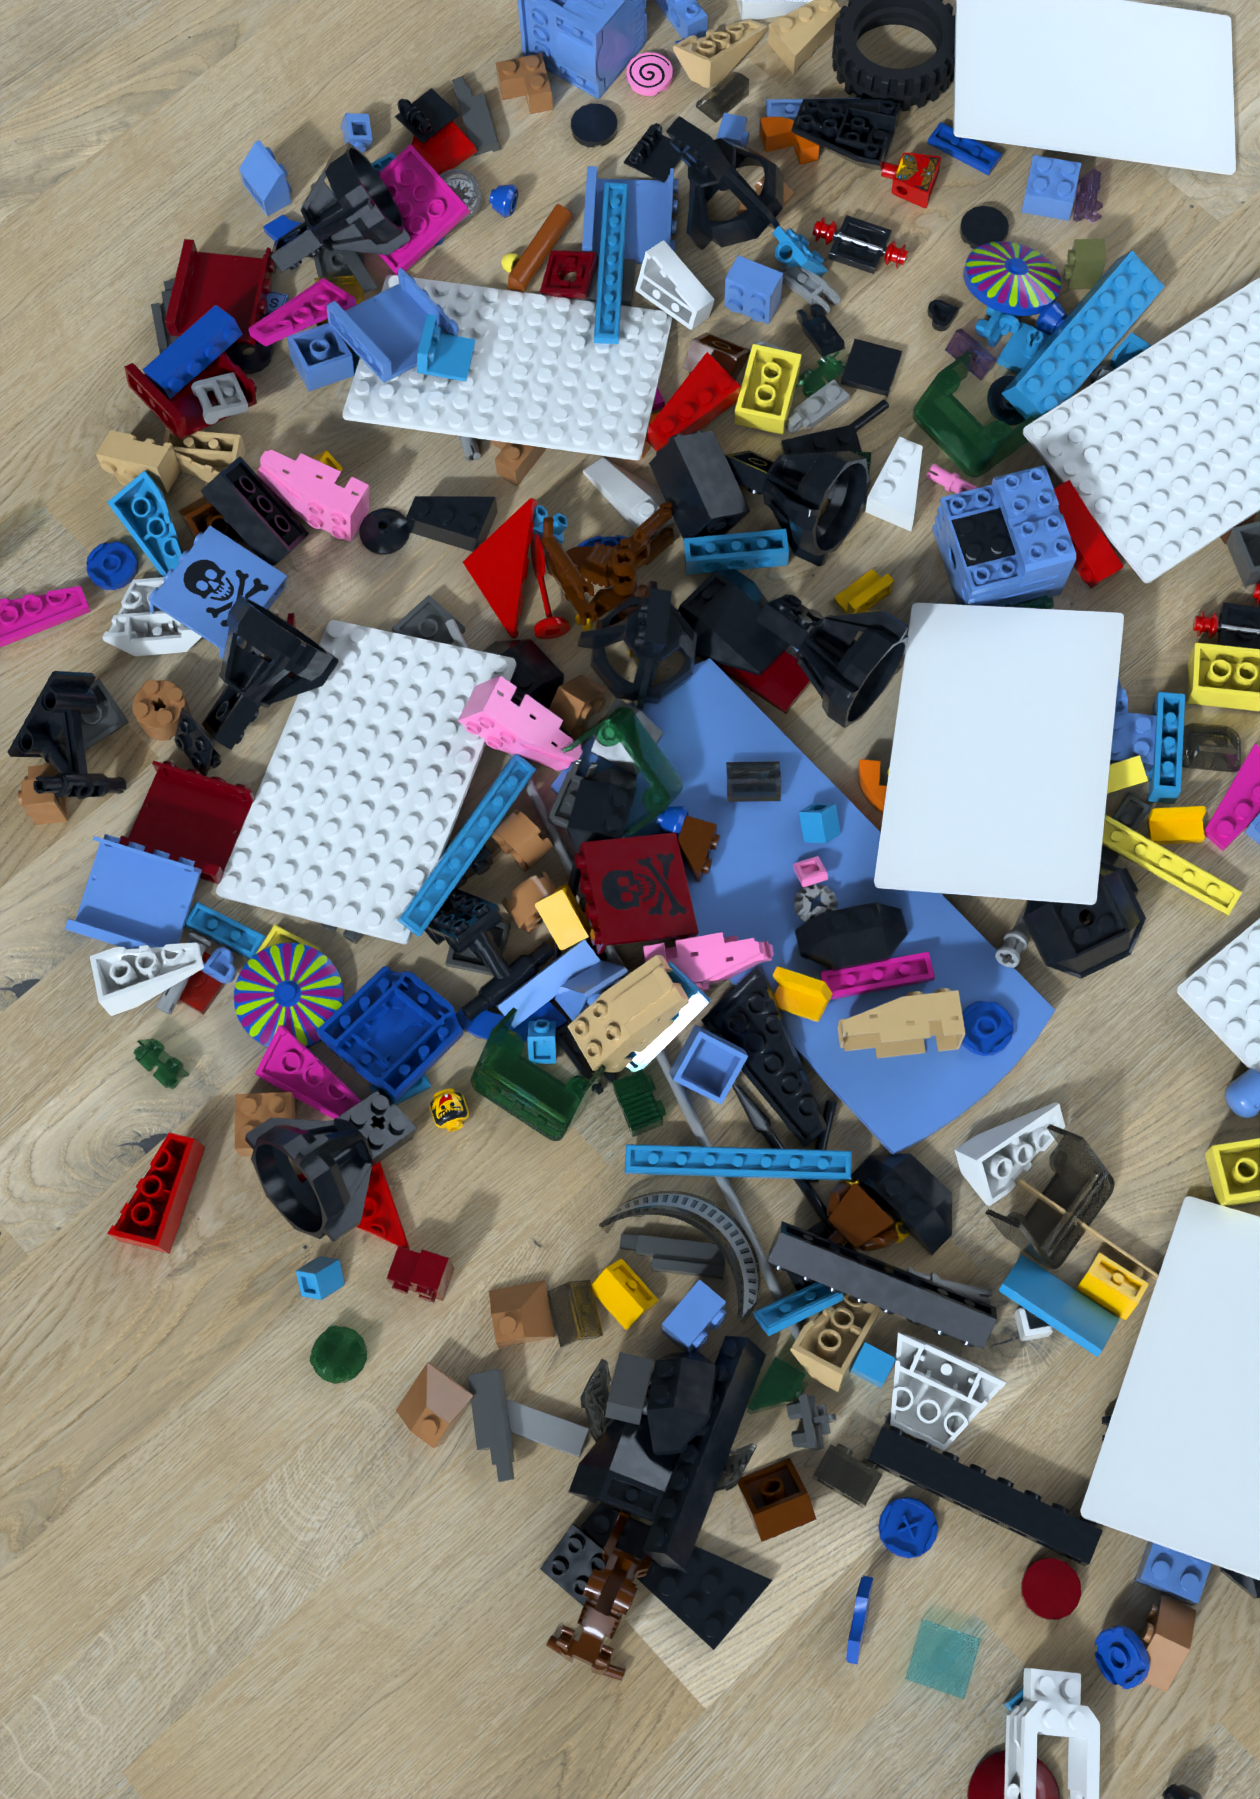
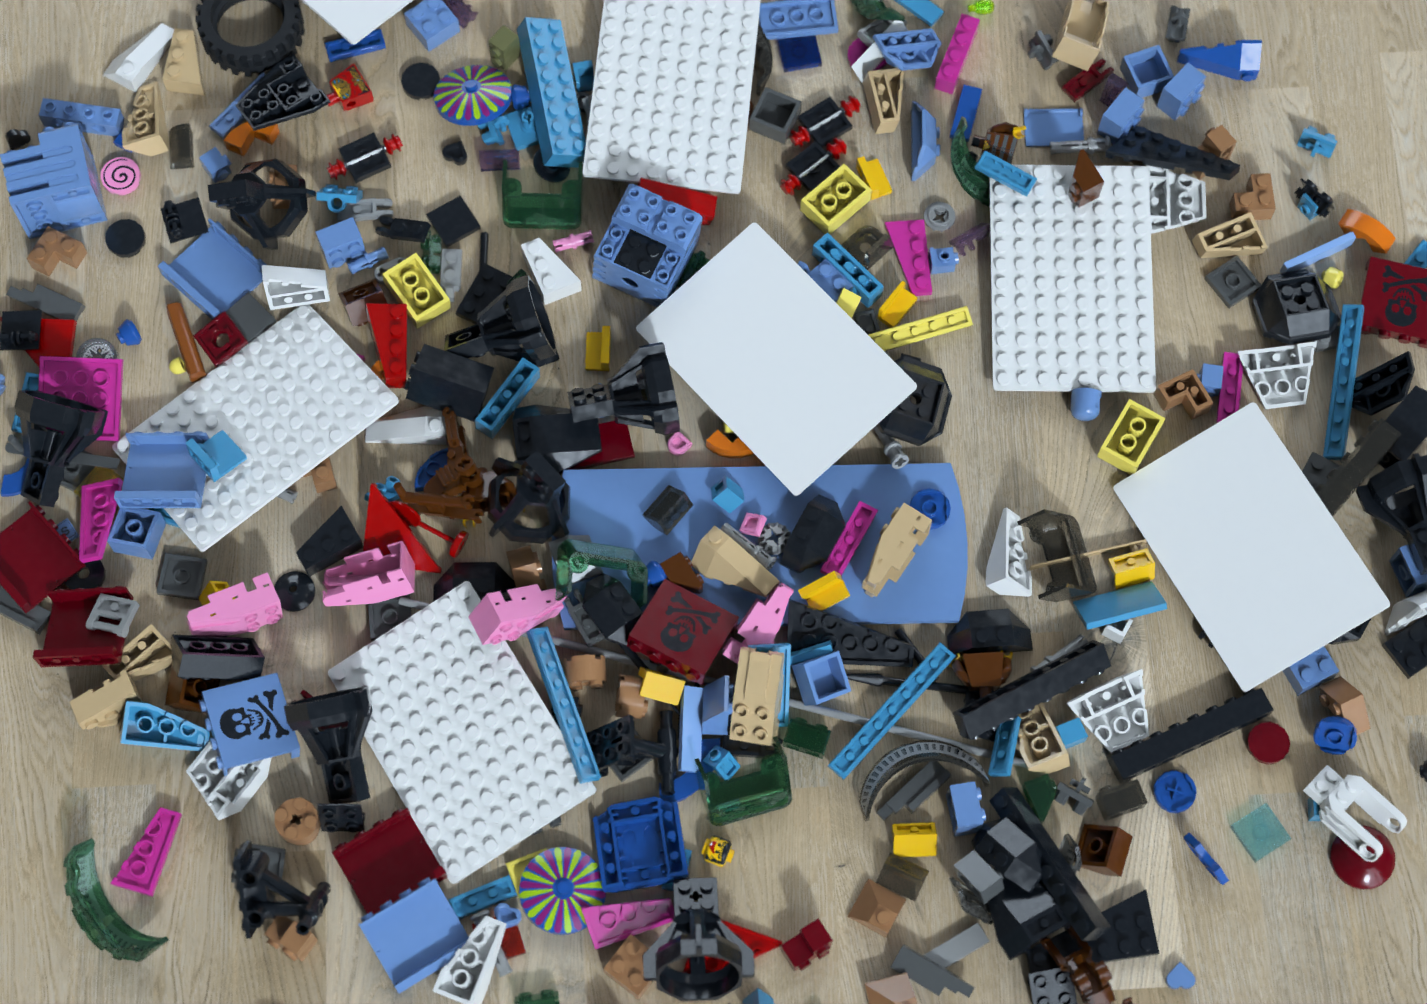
camera: 55 degrees left, 0 degrees up
(112, 565) = (160, 777): blue tile -> none
(193, 351) = (63, 606): blue brick -> none
(315, 428) = (182, 576): none -> dark grey tile
(449, 585) = (370, 580): none -> bright pink piece
(611, 263) = (239, 308): dark azure tile -> none
(707, 1695) = (1180, 977): none -> medium blue tile
(724, 1031) = (811, 652): none -> dark azure tile
(746, 876) = (727, 561): none -> tan wedge
(761, 328) = (367, 260): none -> medium blue pin
(782, 896) = (755, 551): none -> light grey pin
(836, 741) = (678, 444): none -> bright pink tile

